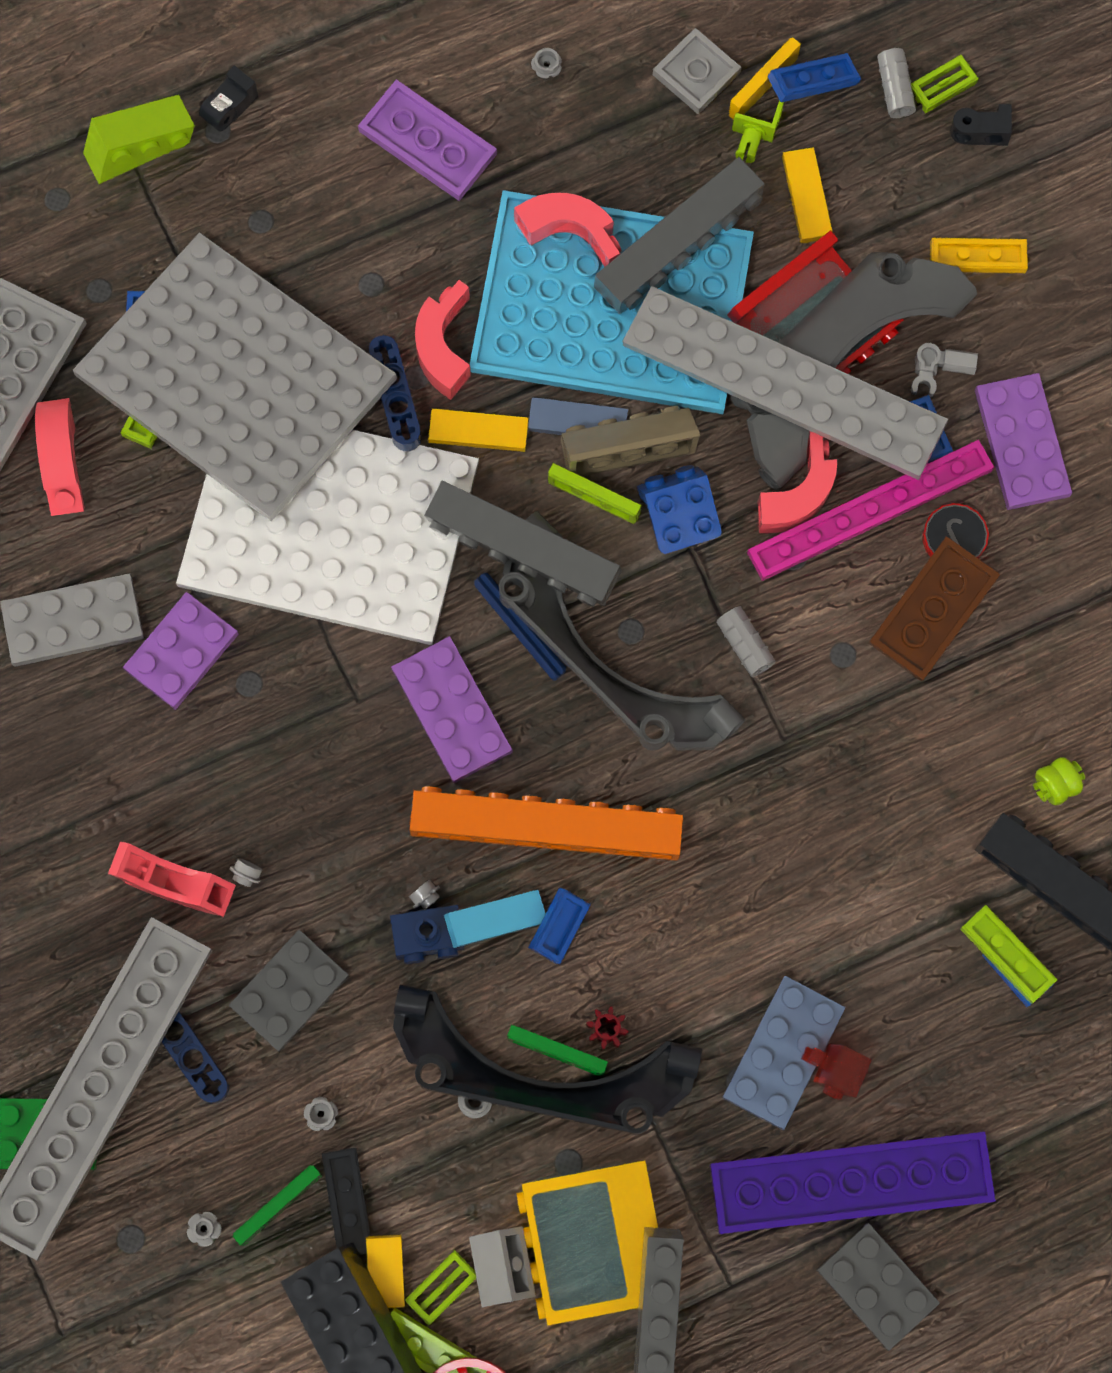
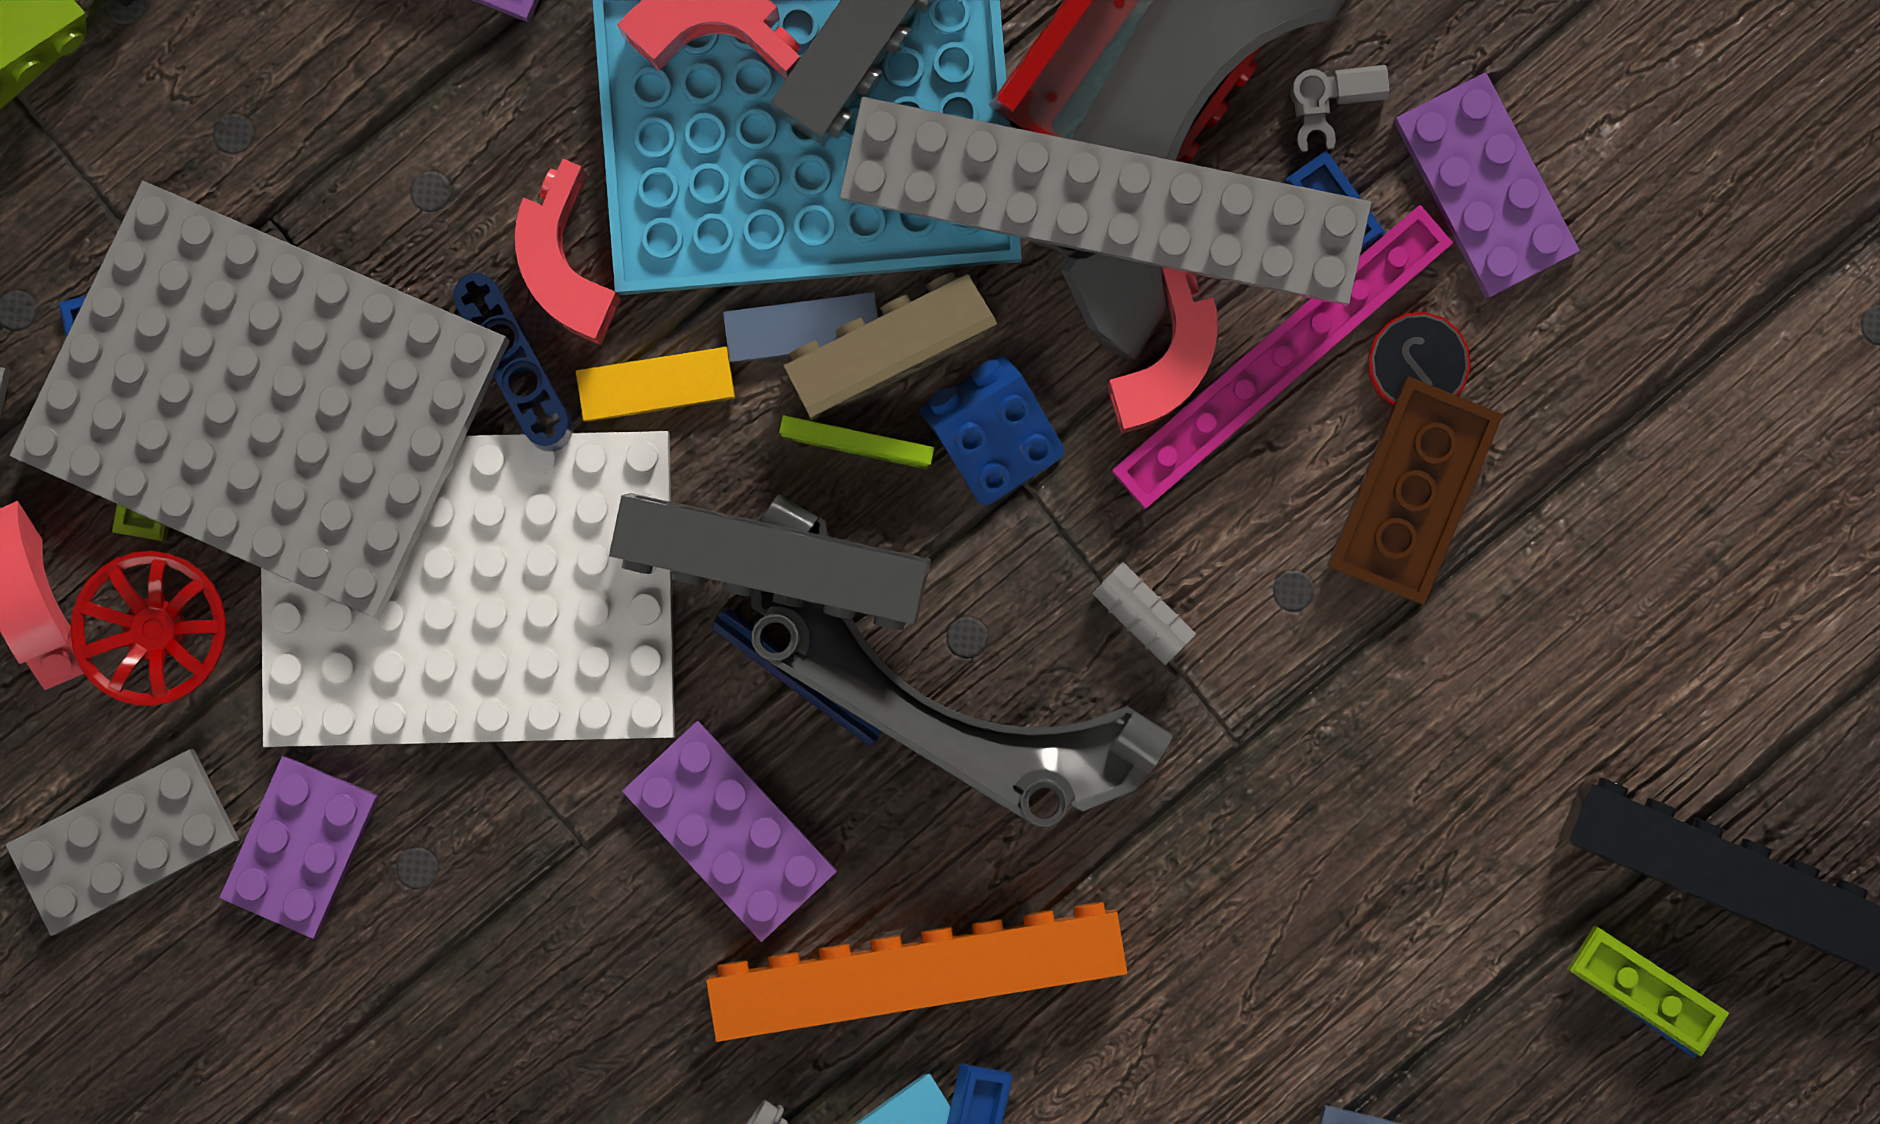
camera: 10 degrees left, 10 degrees up
(128, 493) = (149, 628): none -> red wheel
(1059, 781) = (1662, 708): lime piece -> none

